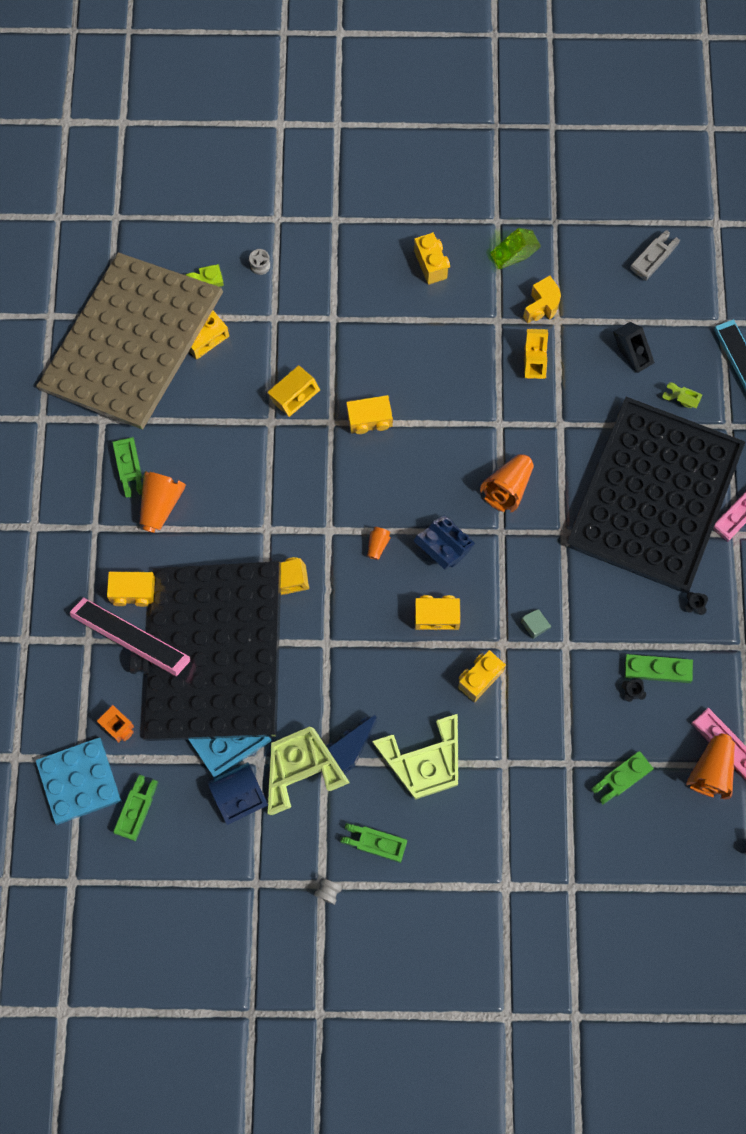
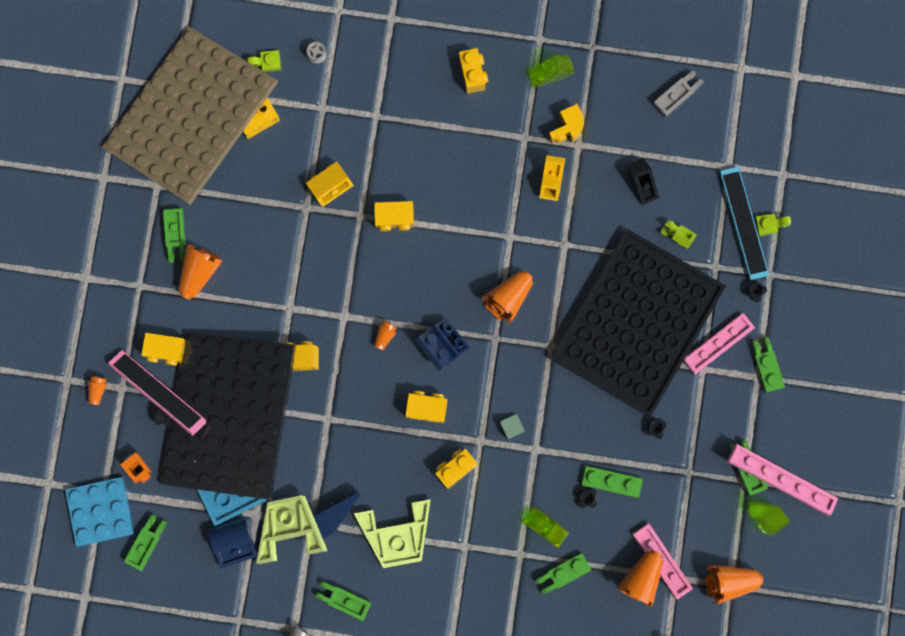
camera: 10 degrees right, 10 degrees up
(59, 644) = (96, 388): none -> orange cone
(593, 727) = (545, 527): none -> clear neon green slope

